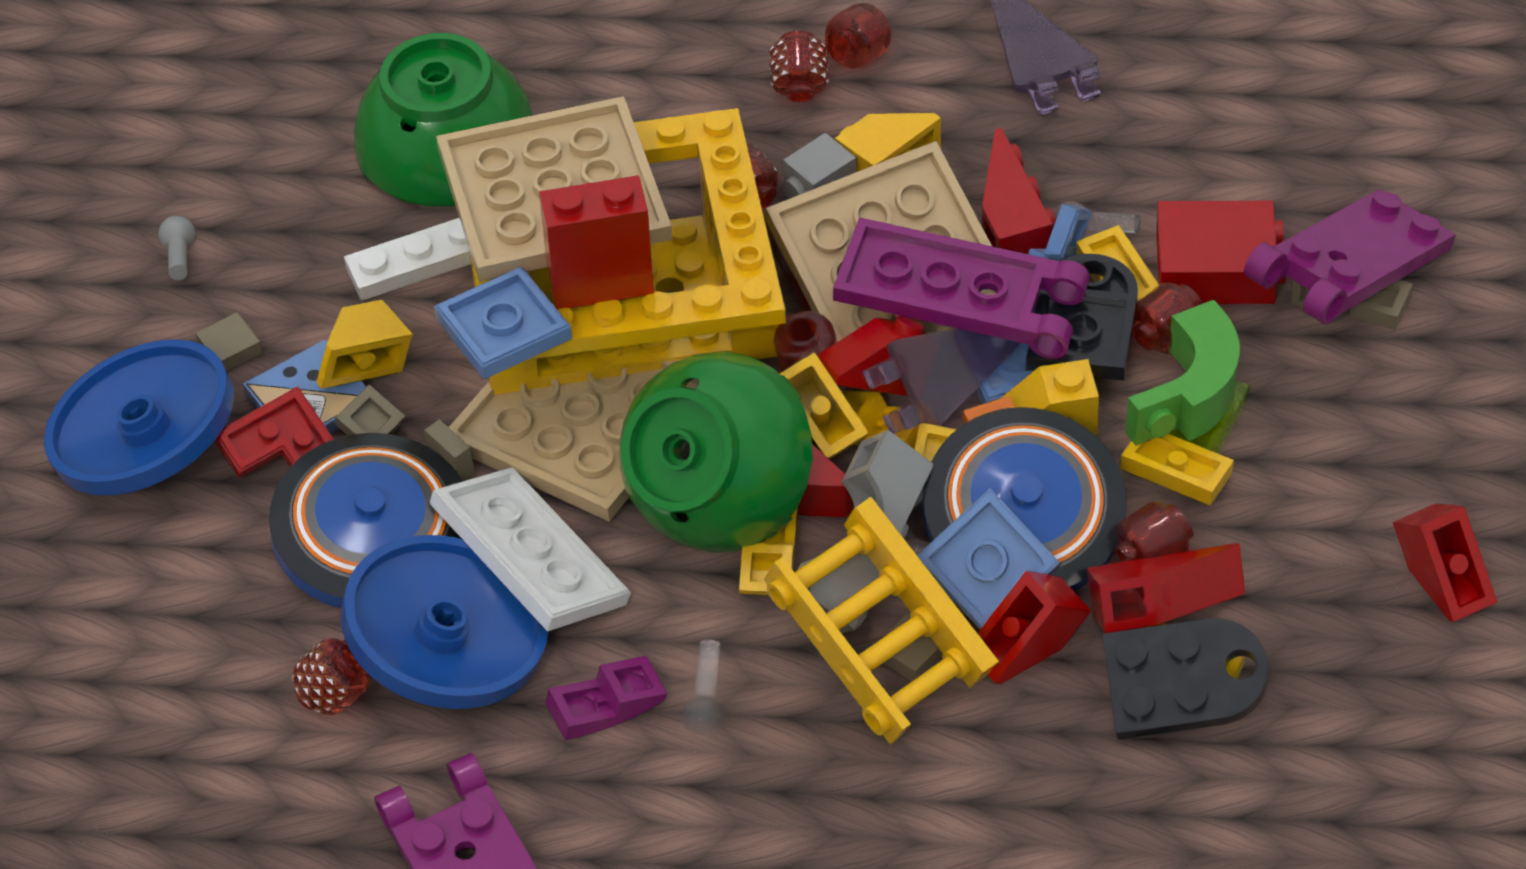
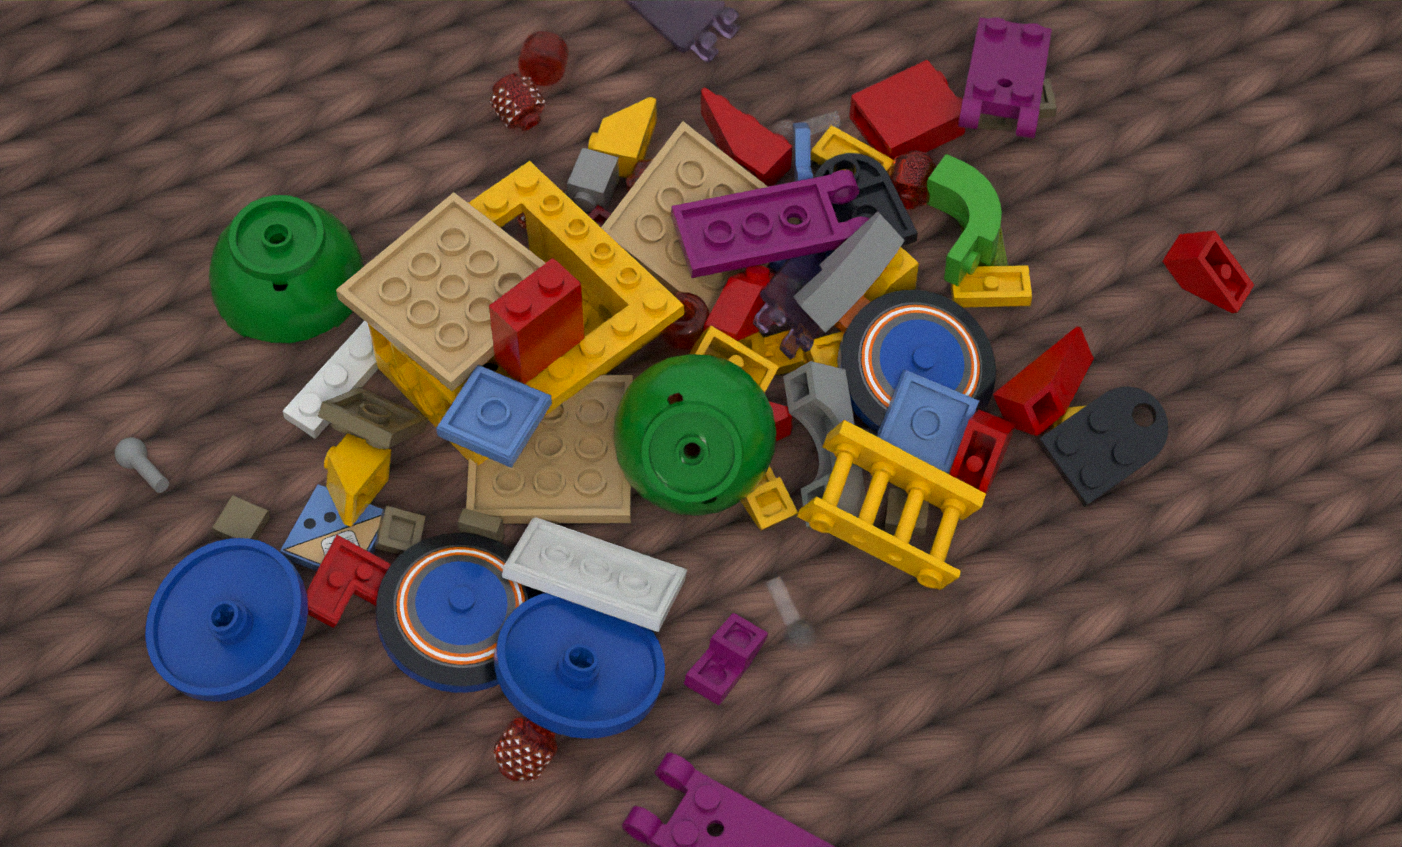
camera: 35 degrees left, 10 degrees up
(408, 291) = (372, 418): none -> dark tan plate
(1006, 365) = (849, 272): none -> light grey slope
(1153, 532) = (1016, 347): clear red head -> none

